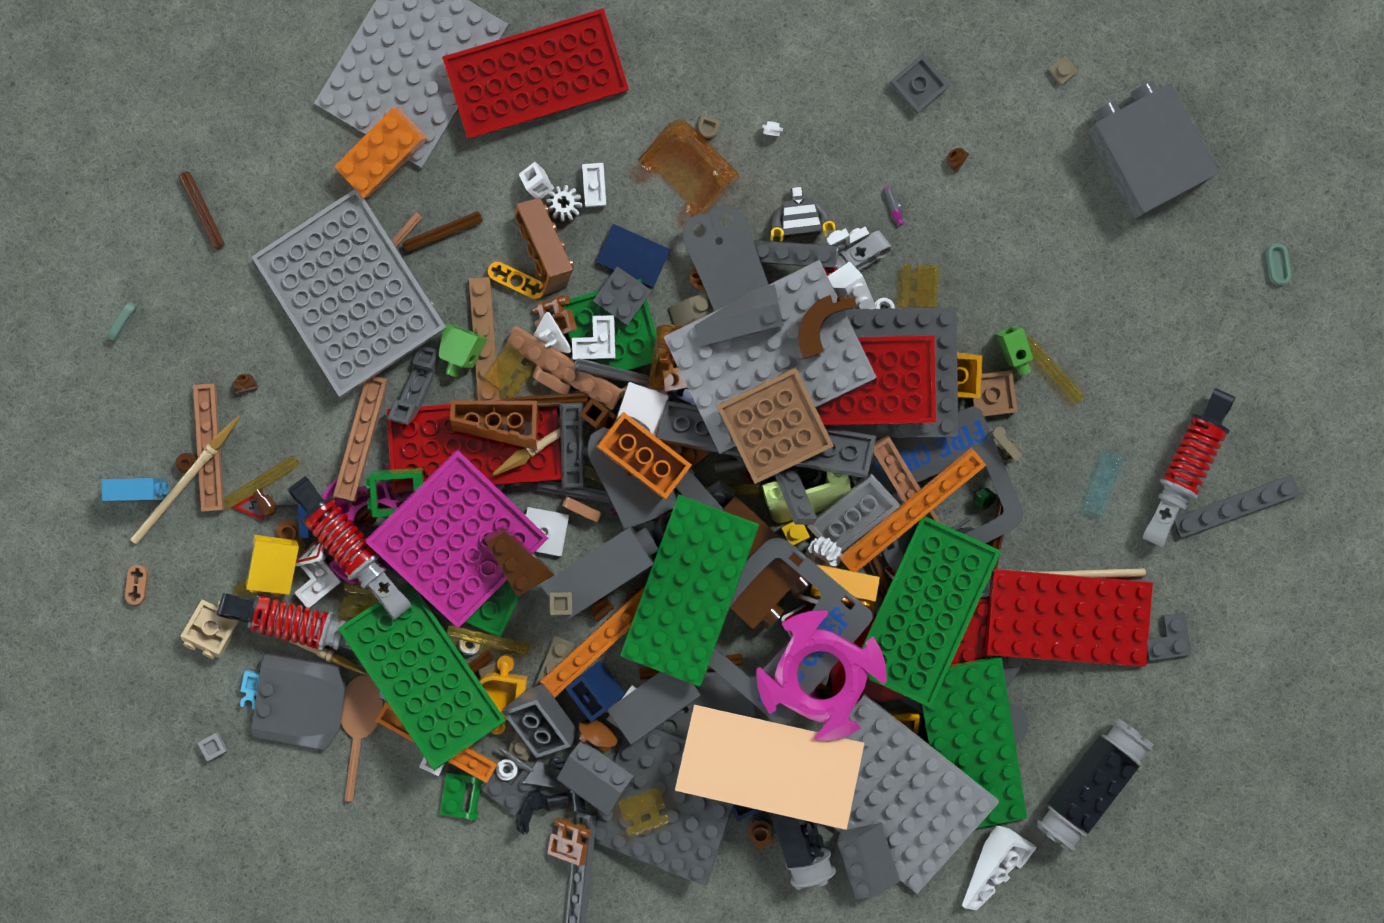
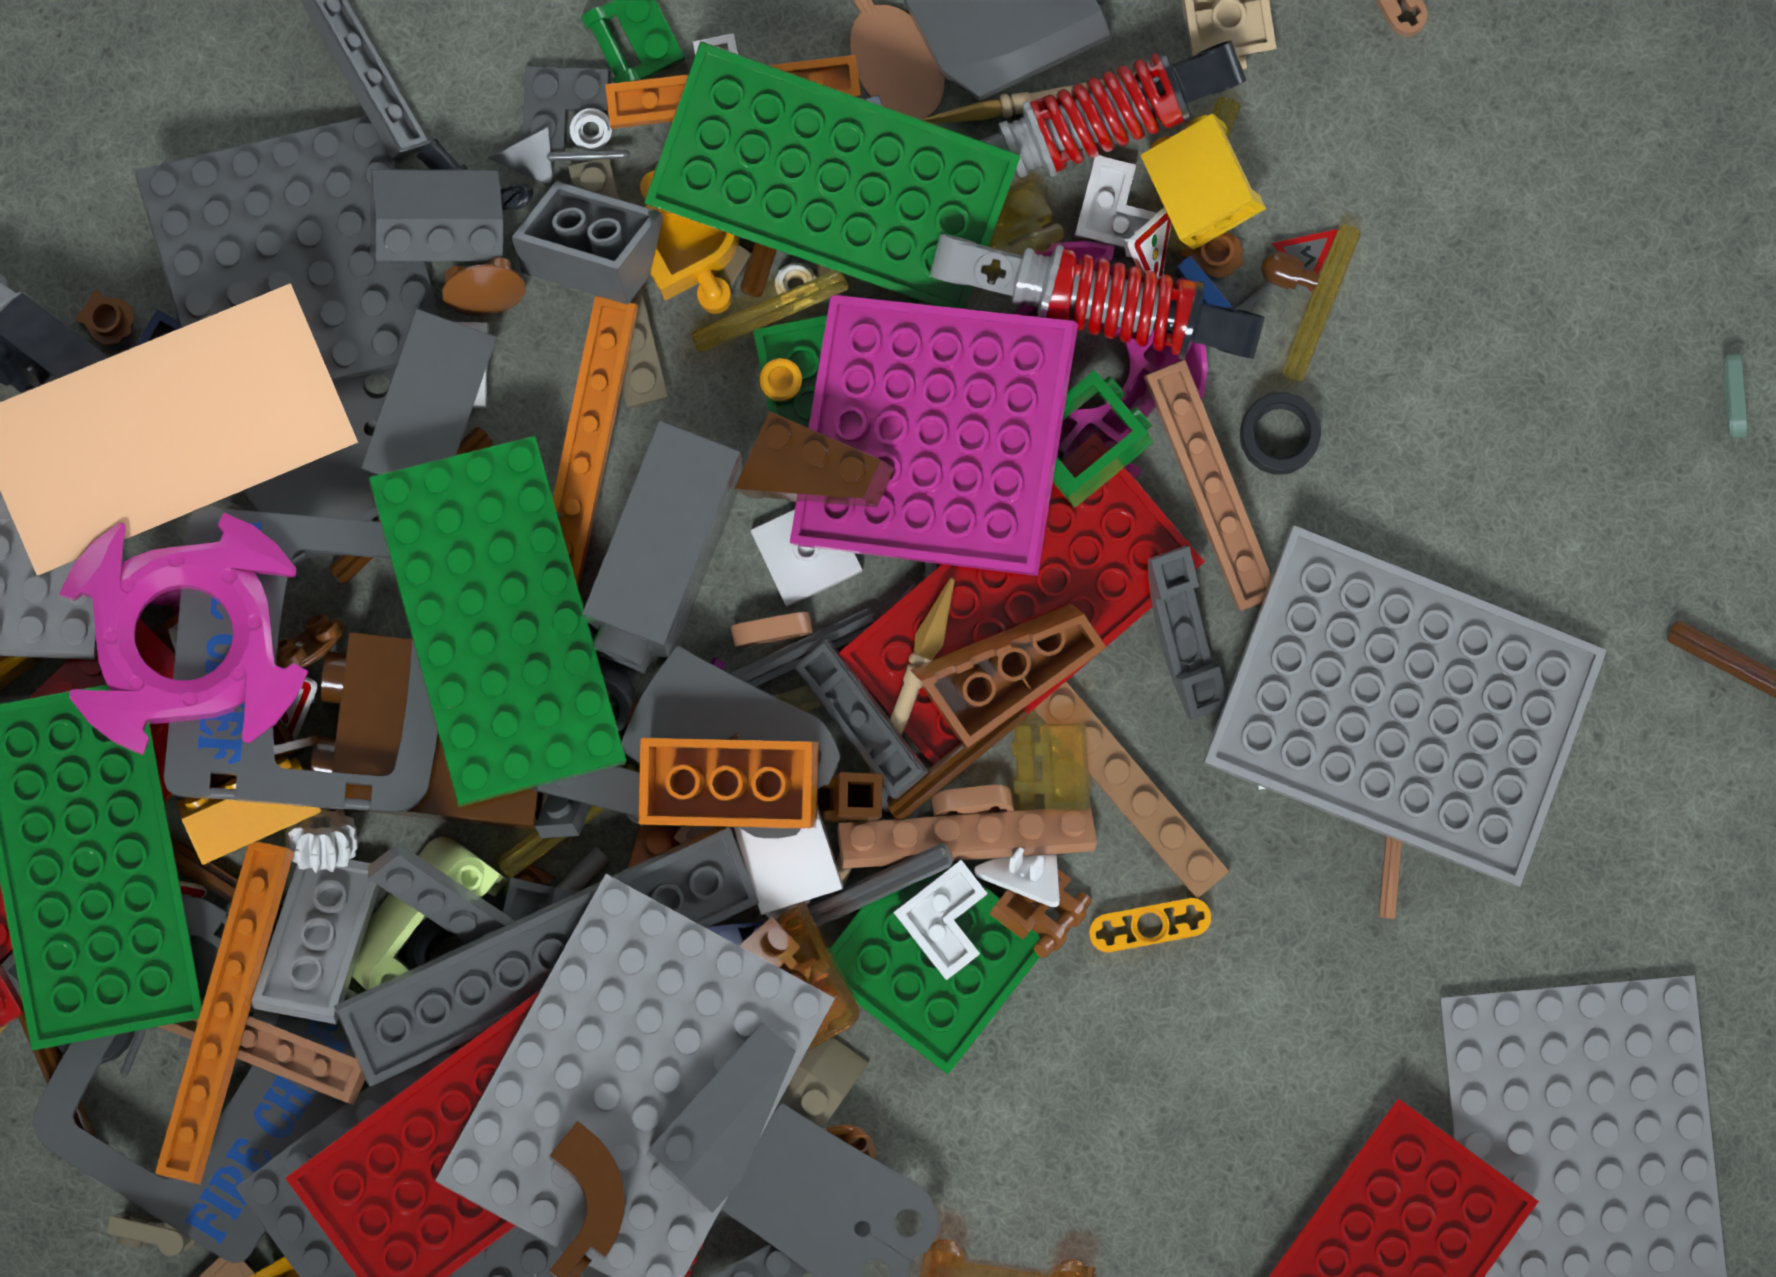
camera: 140 degrees right, 5 degrees down
(134, 489) = (1510, 143): dark azure window -> none
(185, 461) = (1461, 245): reddish brown plate -> none
(205, 456) = (1438, 275): tan piece -> none
(206, 429) = (1446, 296): nougat plate -> none
(244, 383) = (1465, 439): reddish brown plate -> none
(301, 436) = (1288, 402): none -> black tyre
(365, 516) = (1113, 365): reddish brown plate -> none
(381, 152) = (1521, 972): orange brick -> none
(442, 231) = (1328, 917): reddish brown axle -> none
(460, 348) = (1158, 747): bright green torso -> none
(504, 608) = (780, 380): none -> light orange tile
(536, 181) = (1236, 1110): white brick -> none
(537, 801) = (505, 113): black pin -> none
(544, 245) = (1145, 1014): wedge -> none
(561, 603) = (684, 444): dark tan plate -> none
(568, 848) = (403, 74): dark orange plate -> none
(570, 199) = (1161, 1122): white gear -> none
(594, 185) = (1137, 1175): white plate -> none
(595, 691) = (537, 354): dark blue slope -> none
(601, 608) = (618, 490): reddish brown plate -> none
(622, 296) = (956, 1023): dark grey plate -> none
(633, 254) = (988, 1105): dark blue tile -> none
(640, 805) = (330, 226): clear yellow plate -> none
(772, 637) = (312, 644): none -> dark orange dish
(775, 425) = (545, 981): medium nougat plate -> none
(794, 533) = (393, 831): yellow brick -> none
(984, 498) = (122, 1123): dark green tile -> none

